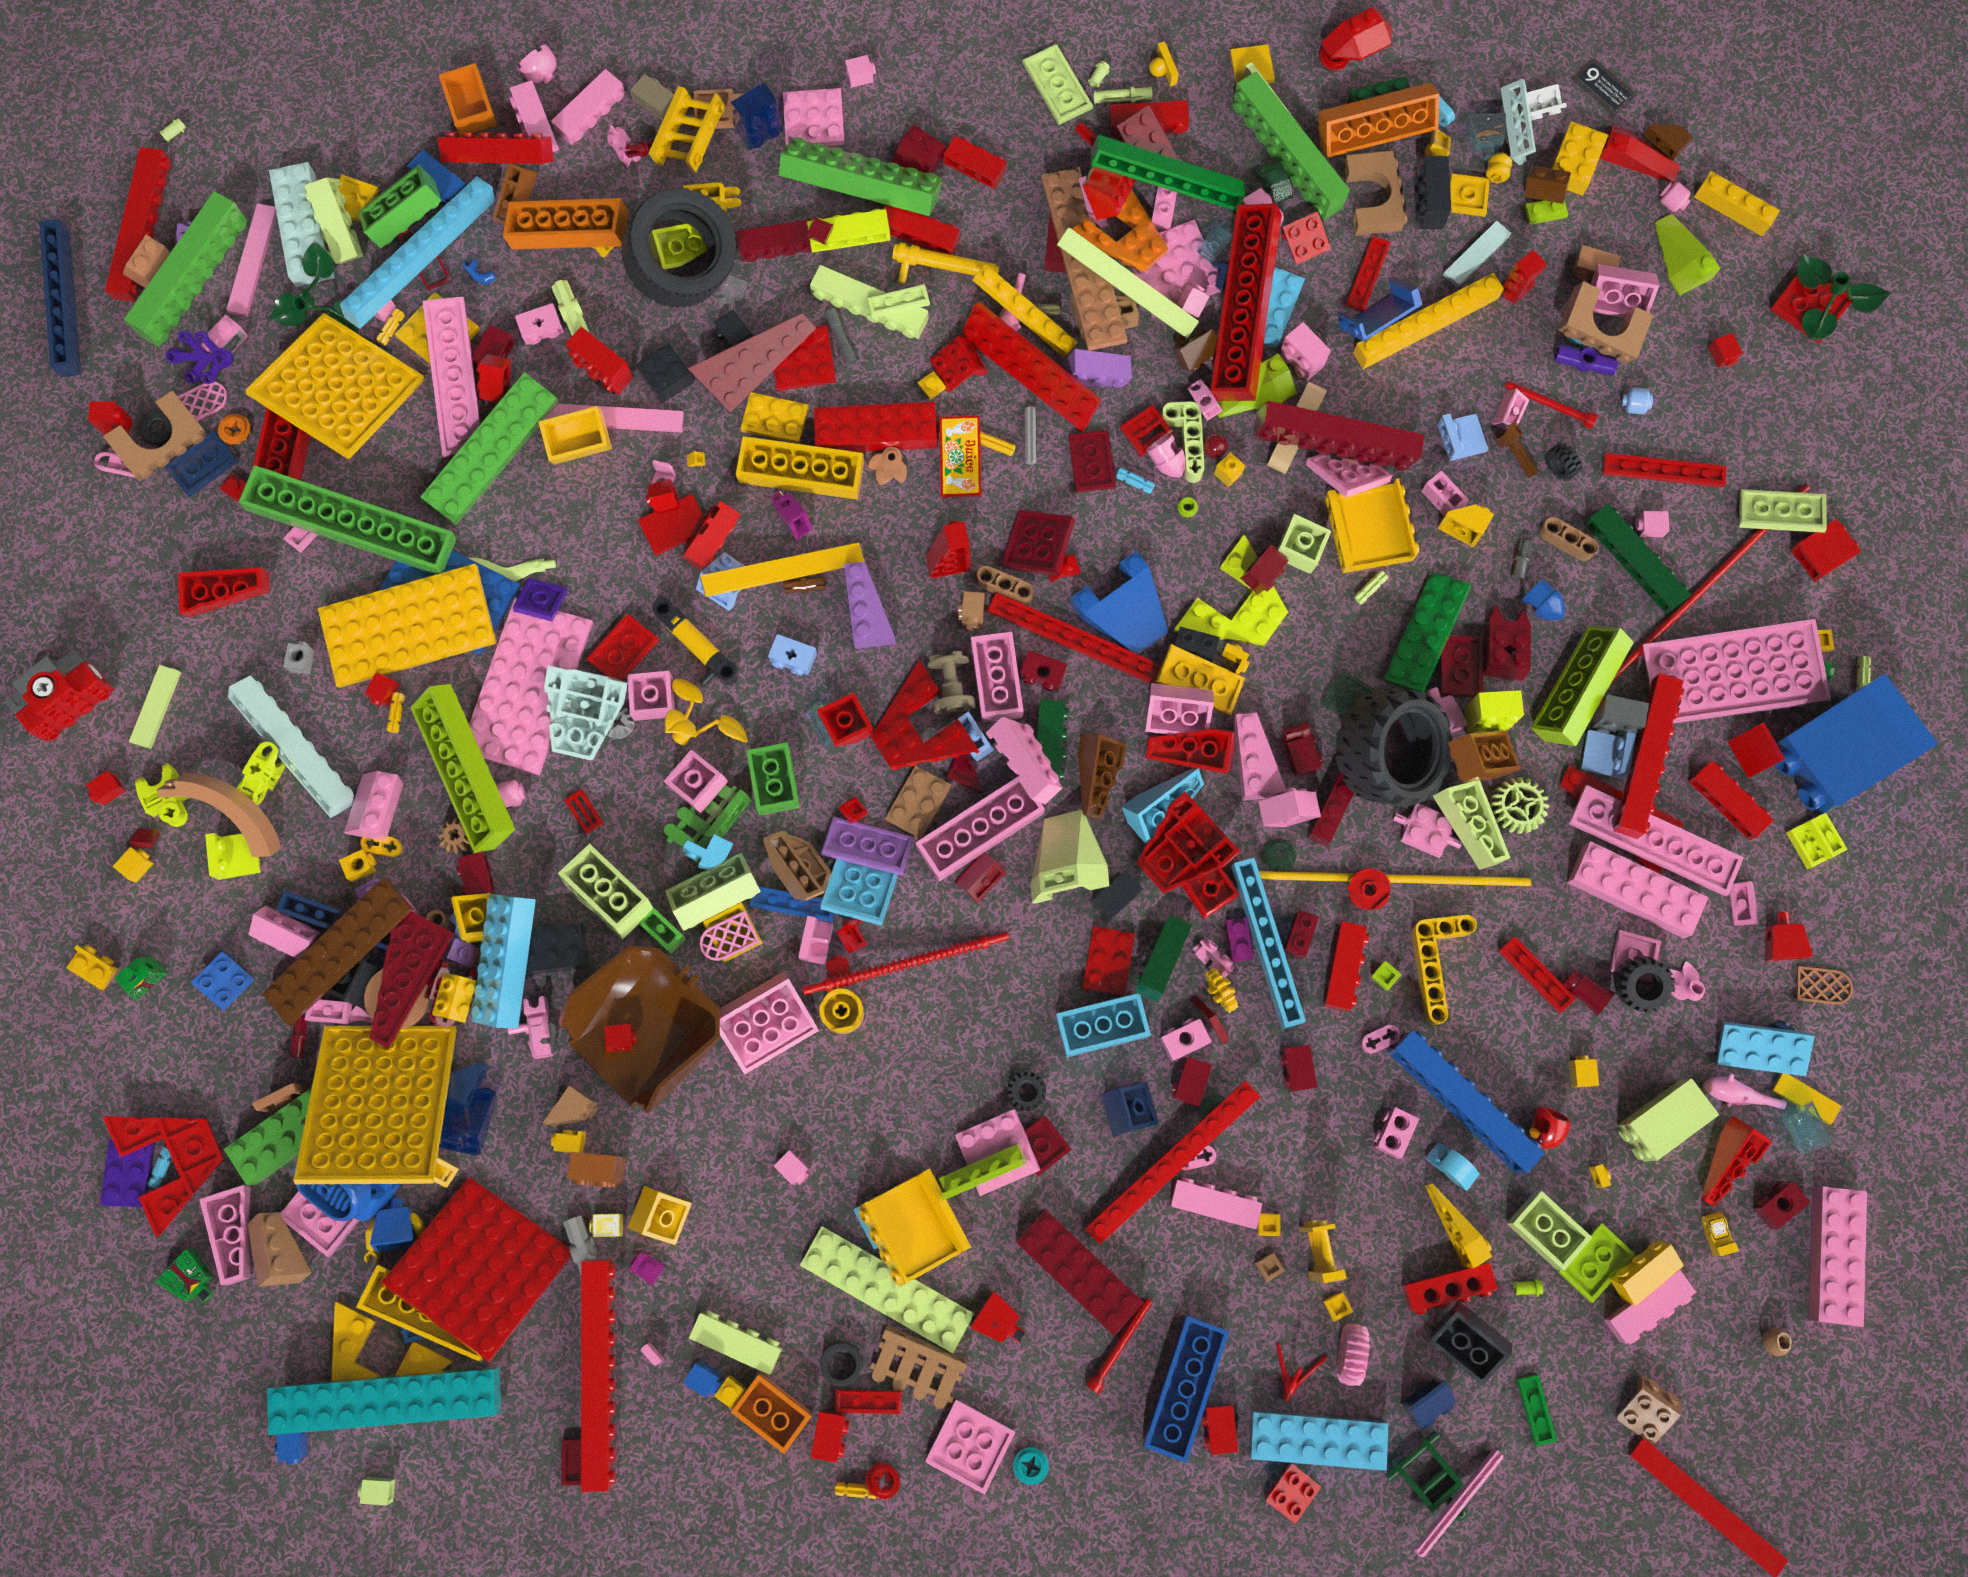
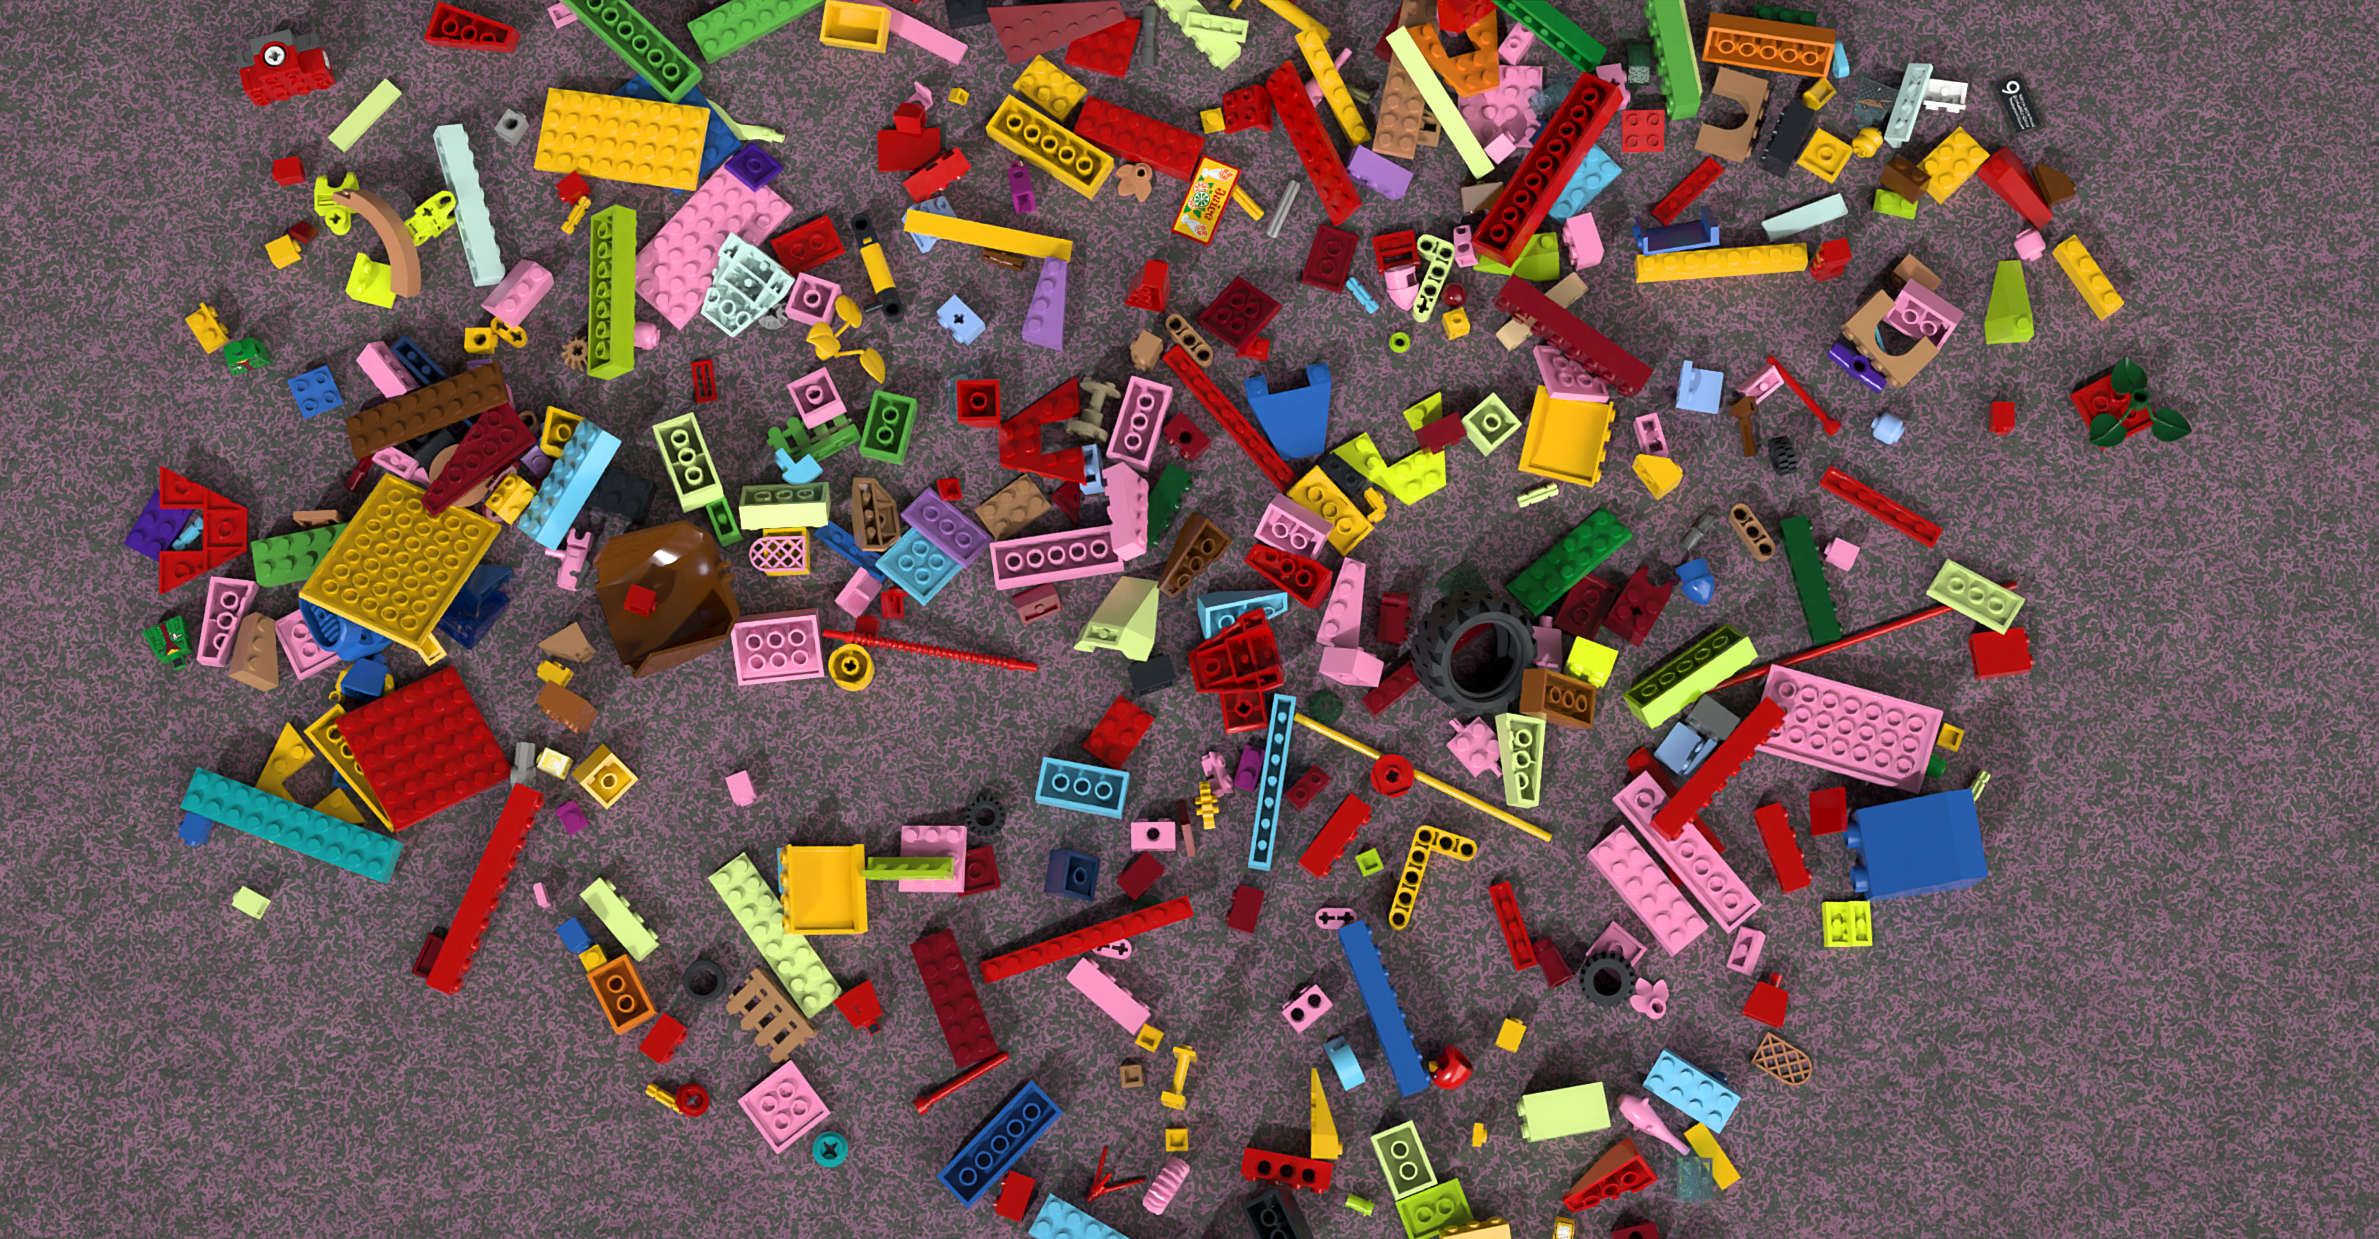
camera: 30 degrees right, 0 degrees up
(475, 874) = (580, 395): dark red brick -> none
(868, 1401) = (712, 1025): red tile -> none
(1162, 959) = (1166, 751): dark green brick -> none
(1516, 789) = (1585, 763): yellowish green gear -> none

